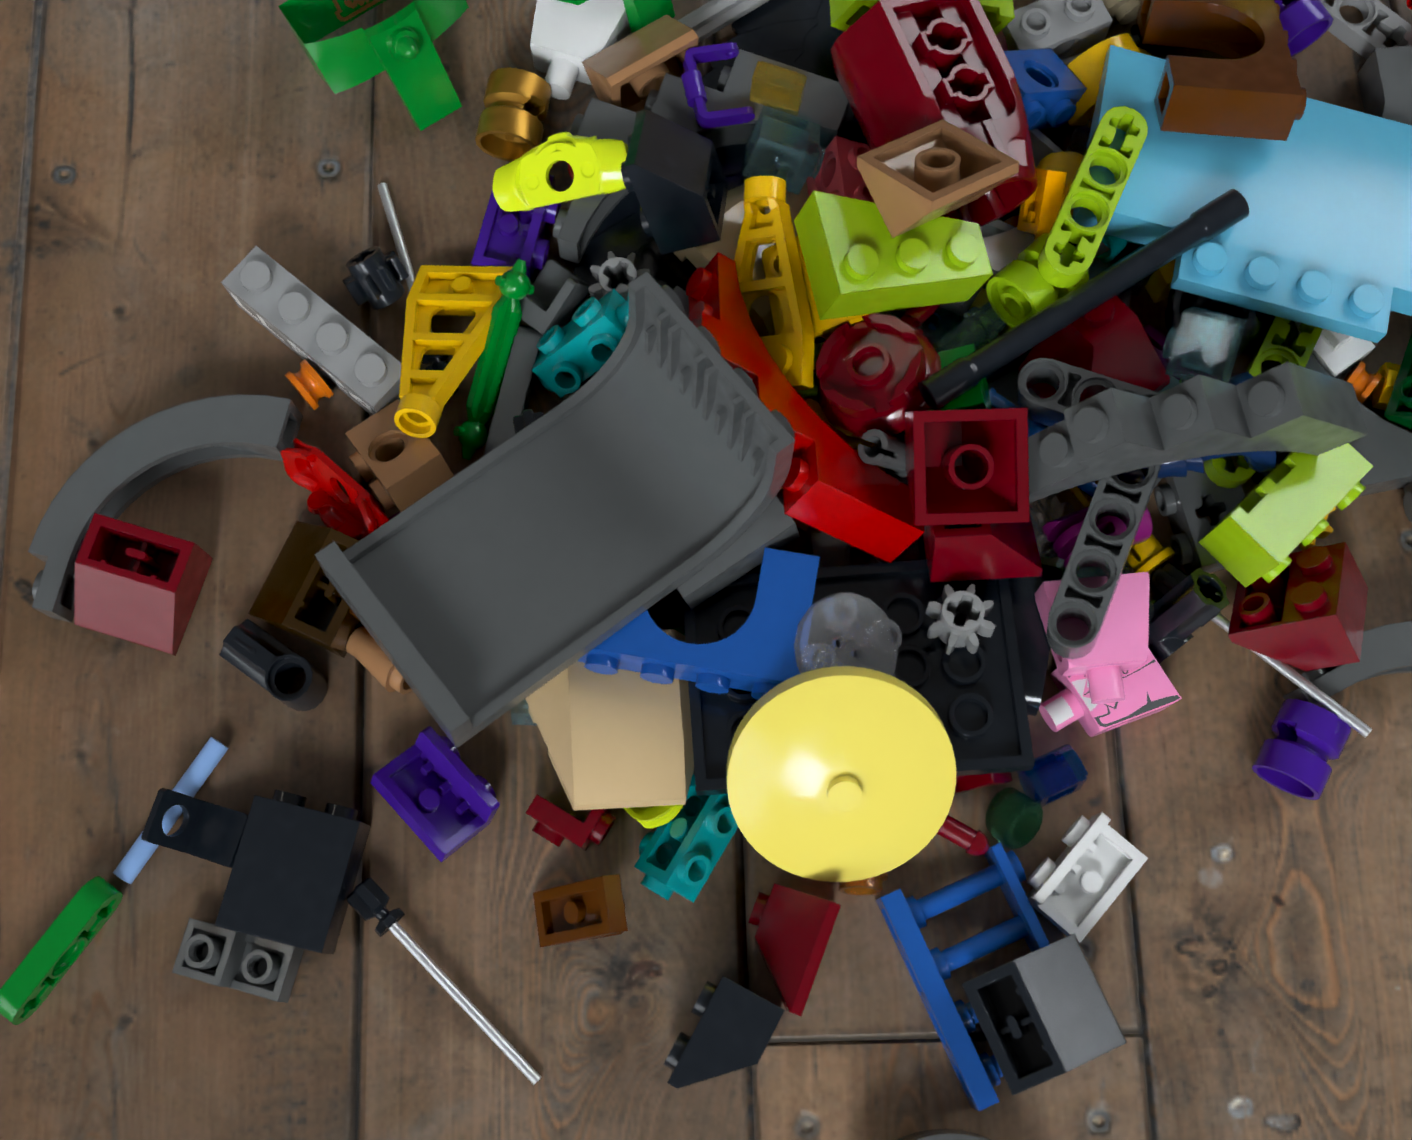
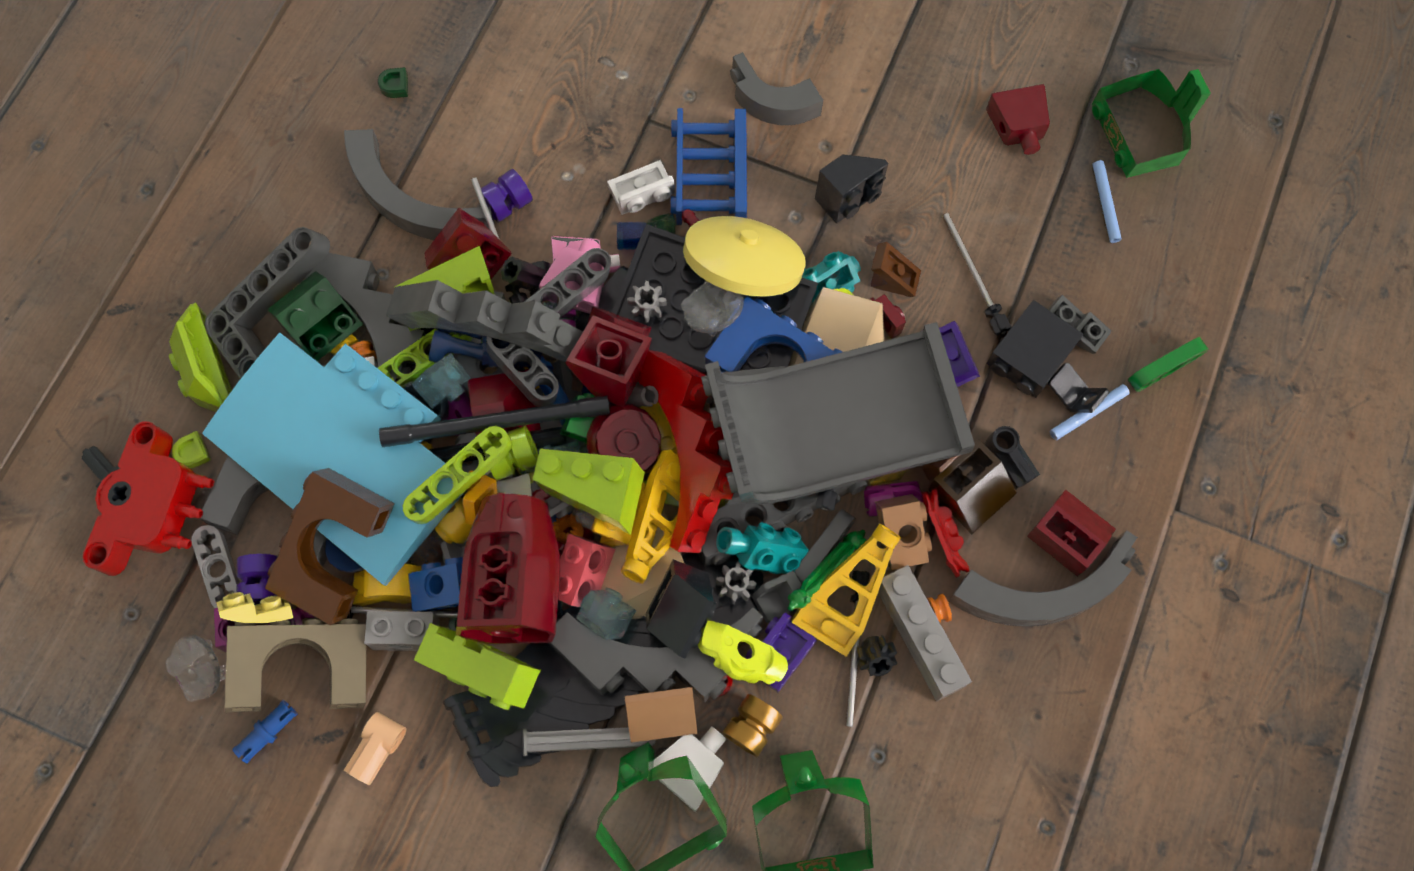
camera: 160 degrees left, 5 degrees down
(695, 89) = (640, 669): dark purple piece -> none
(778, 87) = (592, 643): clear yellow tile -> none
(792, 940) = (795, 208): dark red slope -> none
(931, 174) = (549, 494): medium nougat slope -> none
(1044, 1014) = (699, 126): black slope -> none

